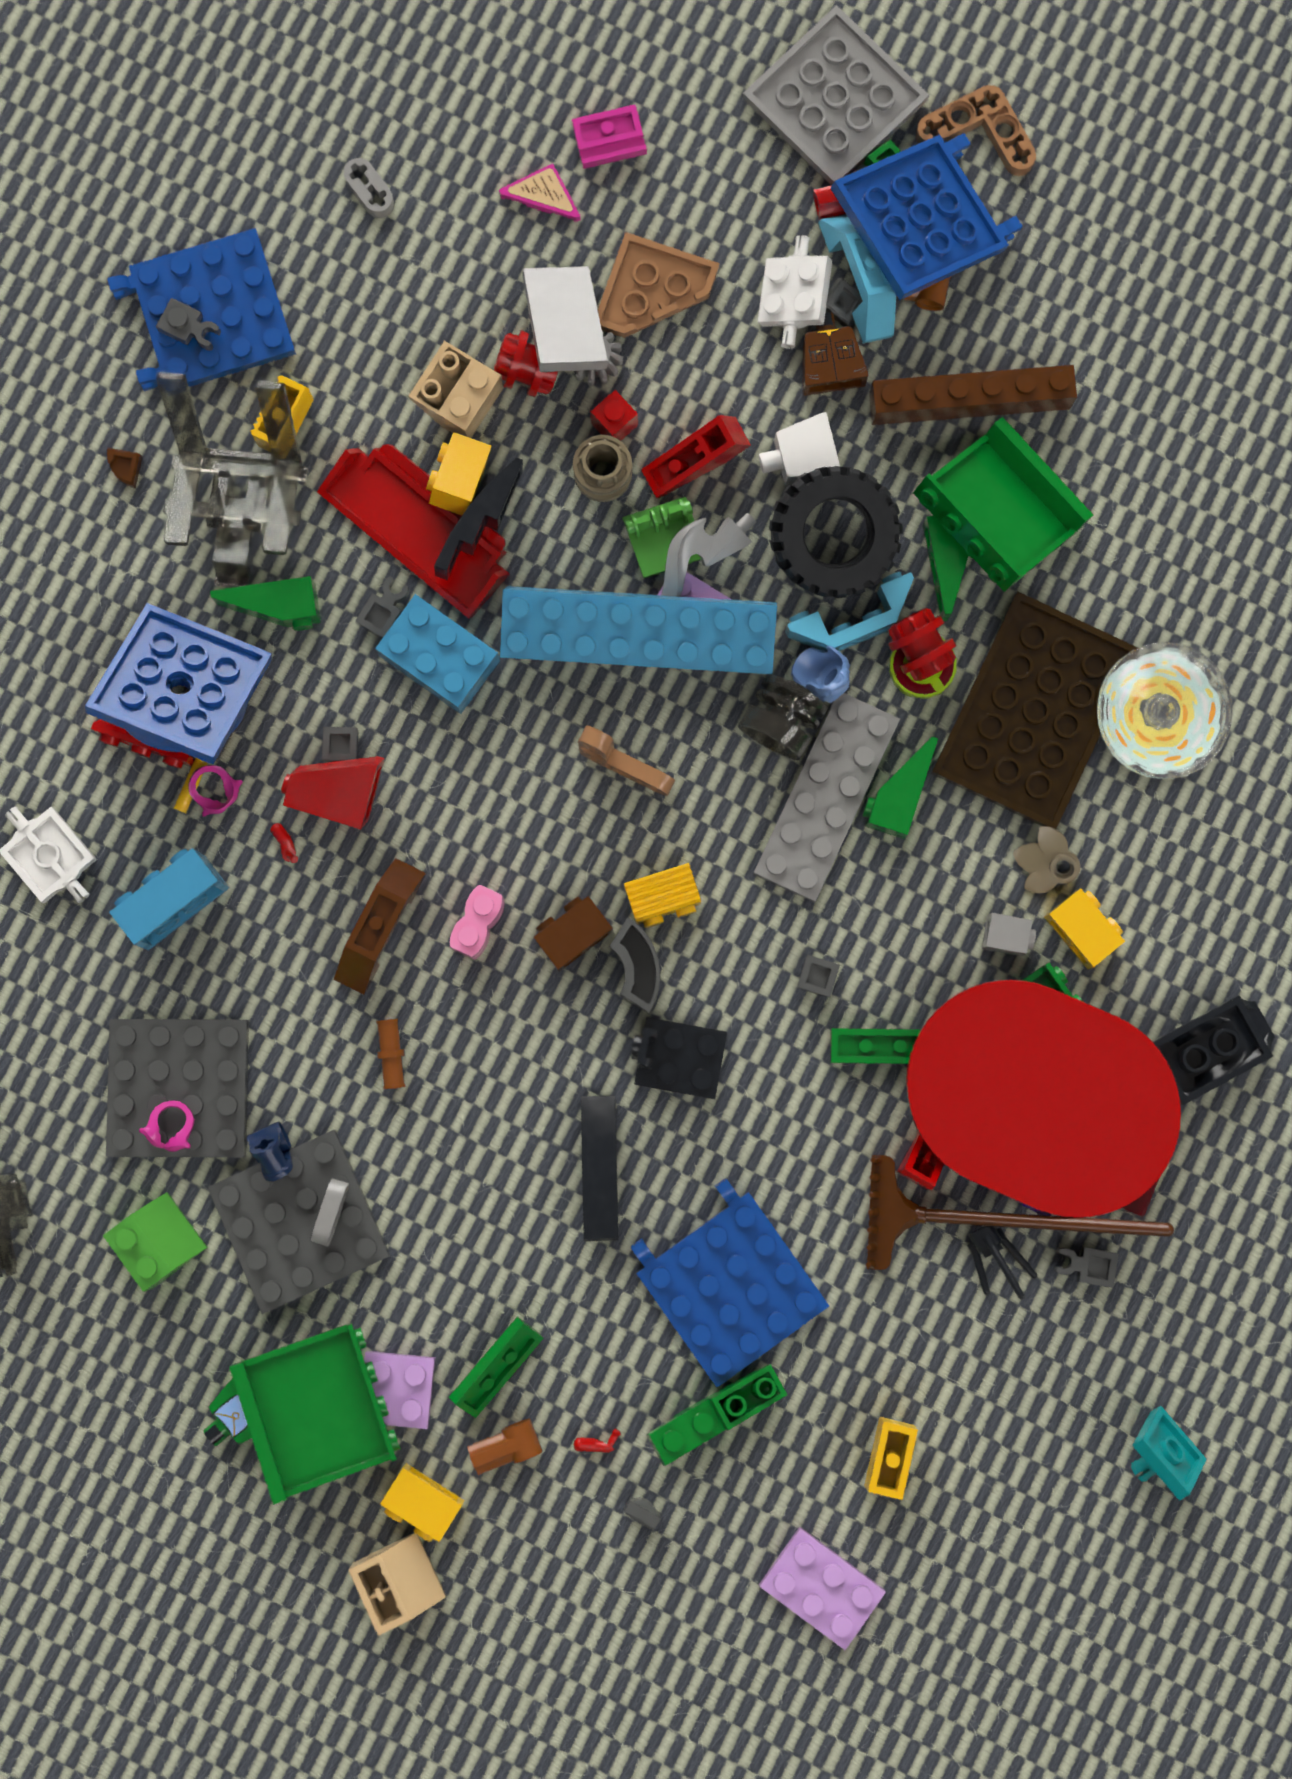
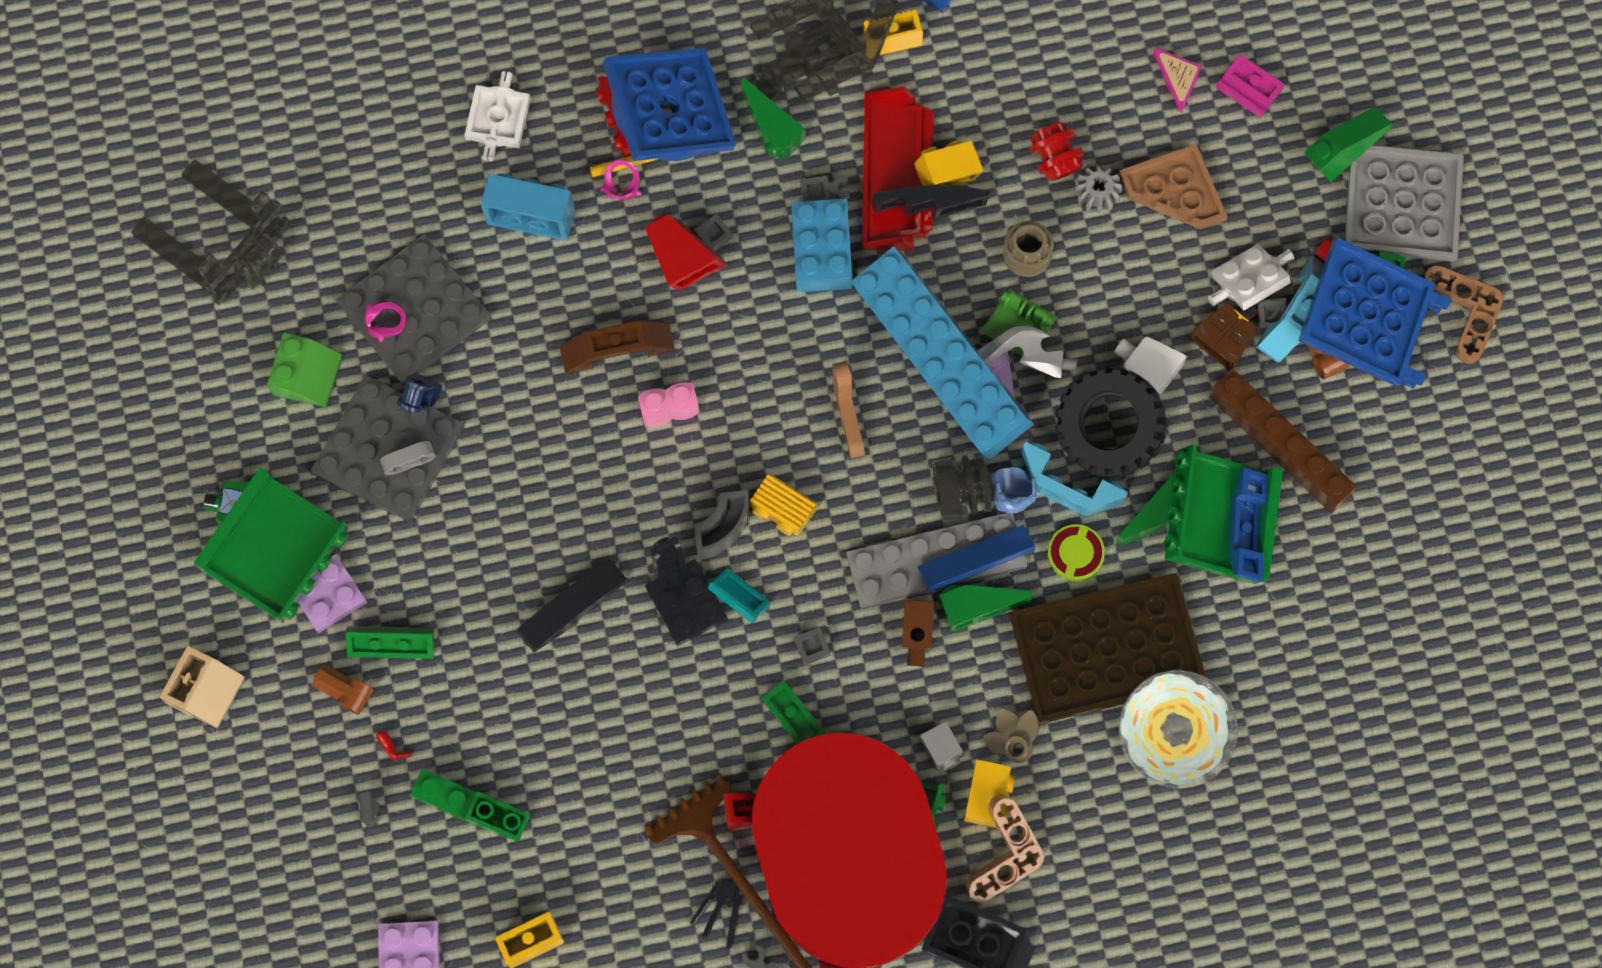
camera: 55 degrees right, 10 degrees down
(287, 847) = (624, 250): red piece -> none
(390, 1054) = (540, 419): dark orange pin -> none
(421, 1503) = (265, 664): yellow brick -> none
(457, 390) = (1001, 123): tan slope -> none
(564, 319) = (1103, 148): tile -> none
(573, 932) = (711, 468): reddish brown brick -> none
(614, 416) = (1068, 231): red brick -> none
(696, 455) = (1090, 301): red slope -> none
(715, 1004) = (739, 595): none -> teal tile
(731, 1287) = (561, 751): blue plate -> none
(742, 95) = (1347, 142): none -> green slope
(860, 759) = (976, 558): none -> blue slope
(873, 858) = (917, 616): none -> reddish brown torso
(922, 644) = (1085, 535): red piece -> none
(1026, 495) = (1244, 524): none -> blue slope
(1159, 947) = (1017, 850): none -> medium nougat beam

